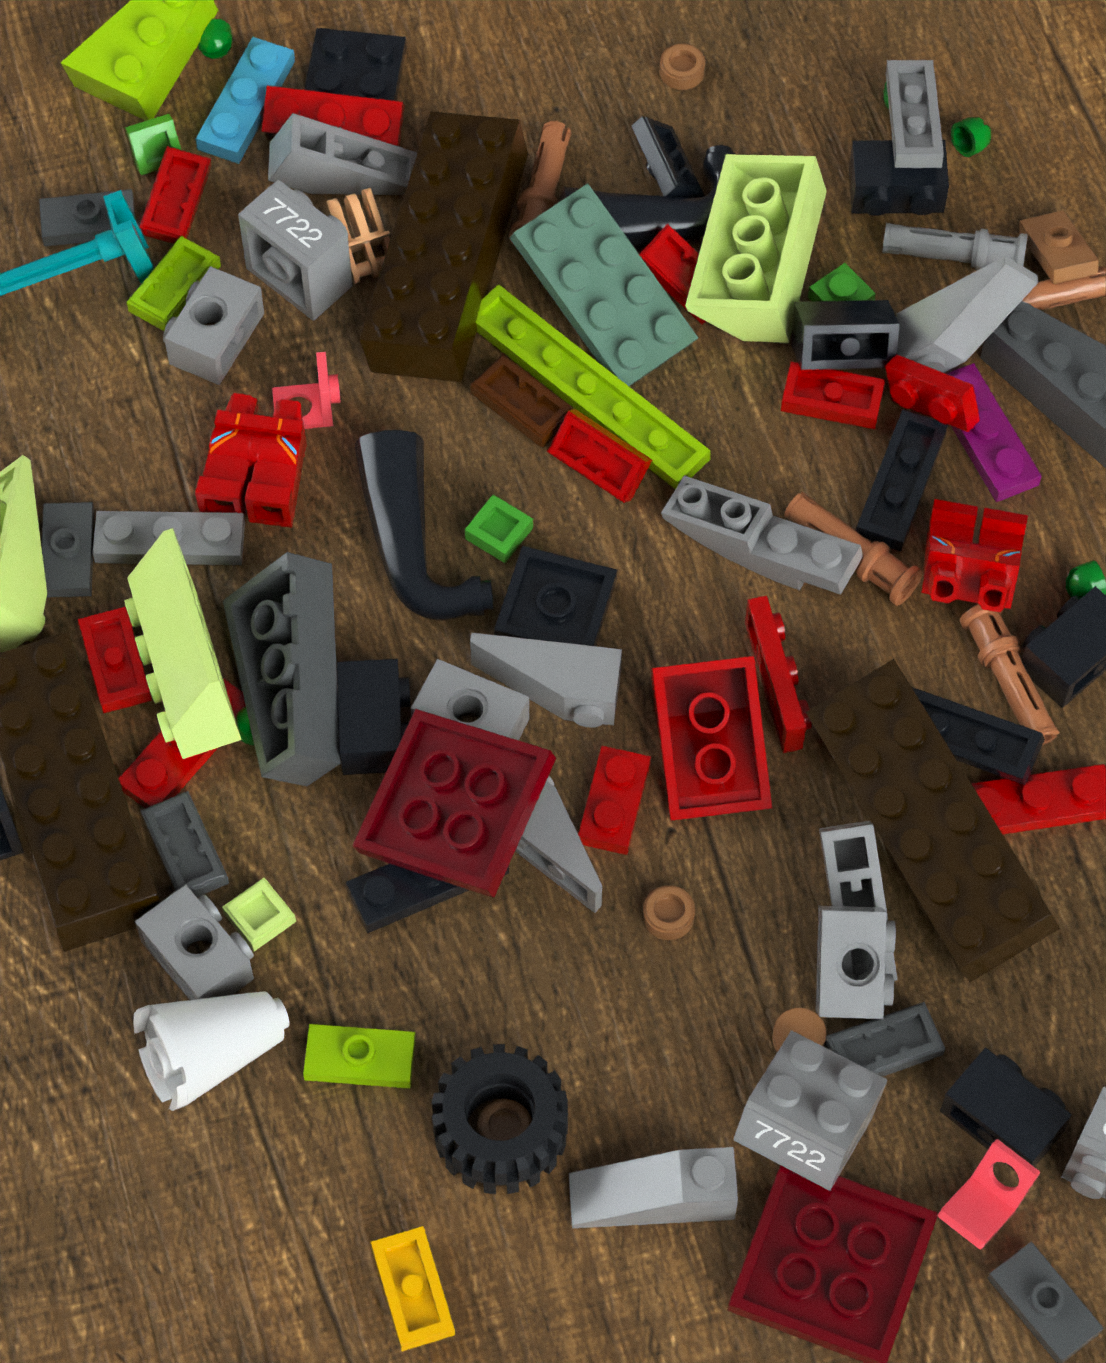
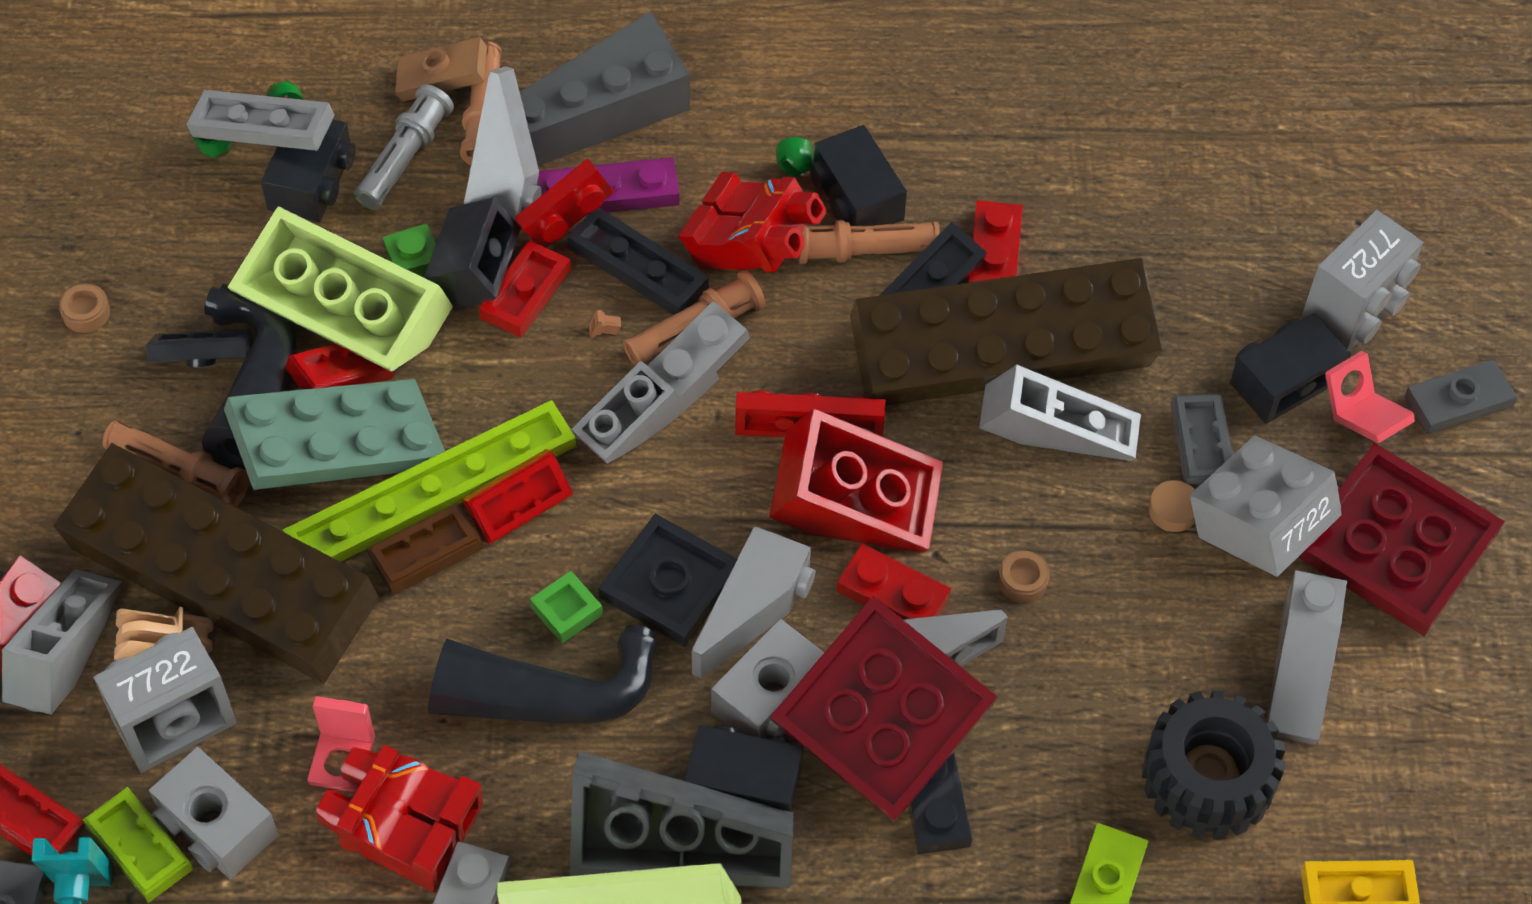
camera: 75 degrees left, 5 degrees down
(822, 474) = (603, 323): none -> nougat piece
(839, 932) = (1129, 433): light grey brick -> none

